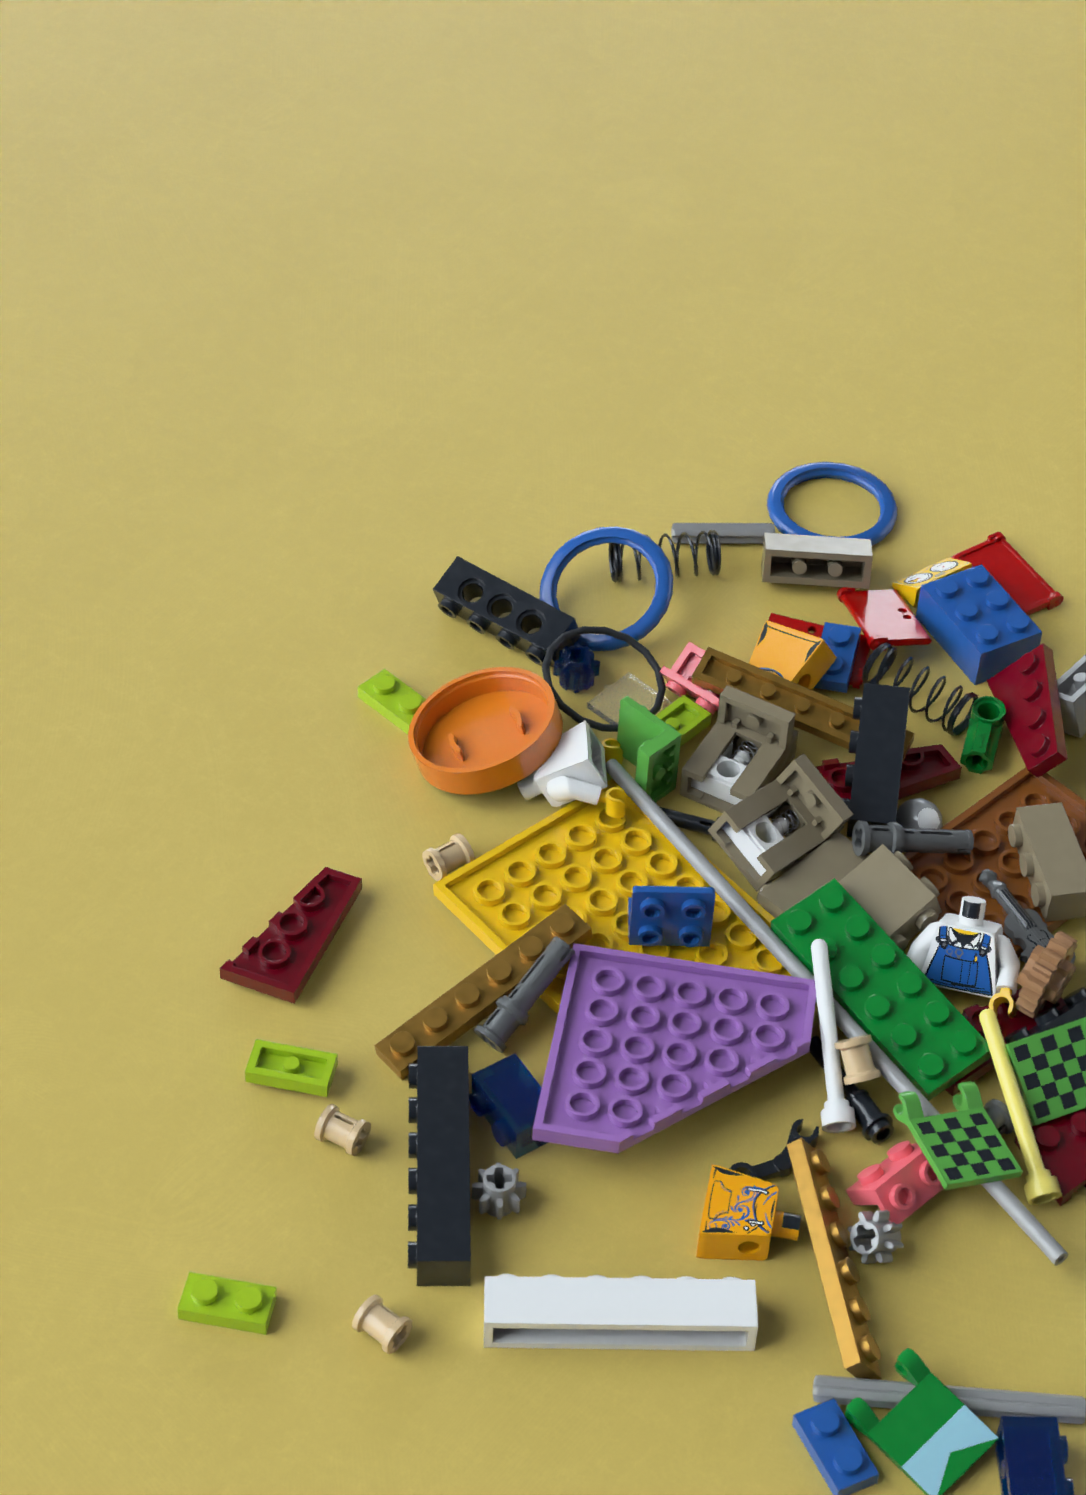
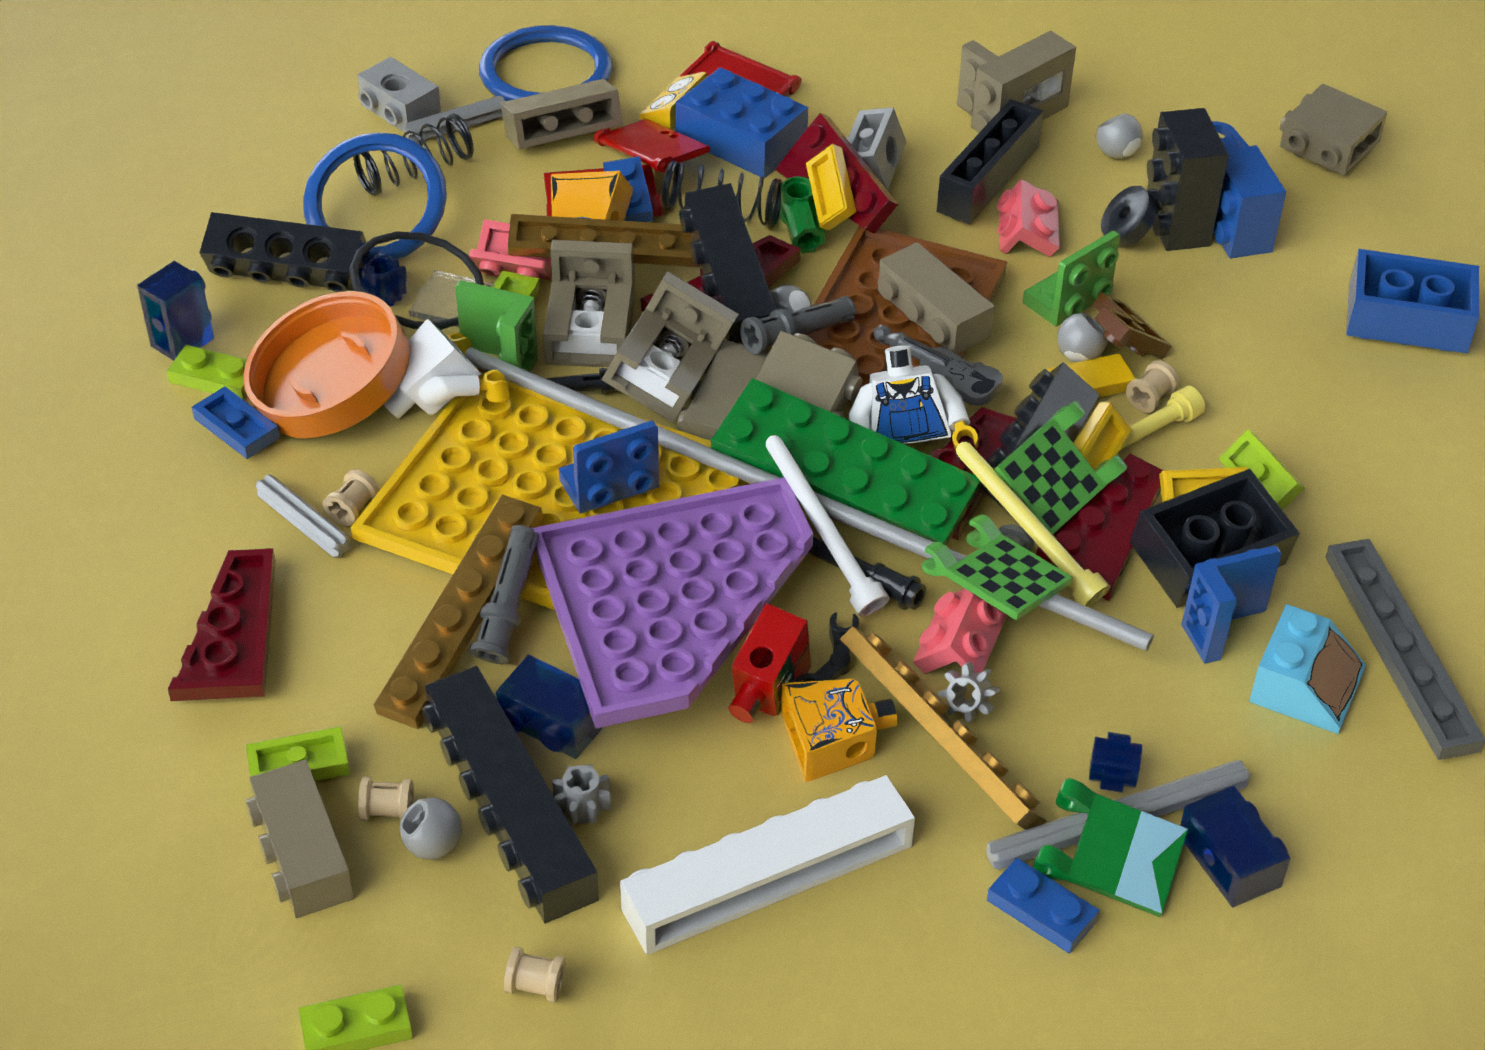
camera: 25 degrees left, 0 degrees up
(257, 1135) = (298, 839): none -> dark tan brick
(363, 1169) = (430, 828): none -> light grey piece
(387, 635) = (175, 309): none -> clear blue brick
(389, 754) = (235, 422): none -> blue plate
(403, 858) = (303, 516): none -> axle
(682, 491) = (397, 93): none -> light grey brick
(714, 1135) = (771, 656): none -> red torso
(857, 1059) = (863, 534): tan bush -> none
(968, 1352) = (1115, 762): none -> clear blue gear
(1016, 719) = (831, 187): none -> yellow tile
(1046, 974) = (995, 393): medium nougat gear -> none

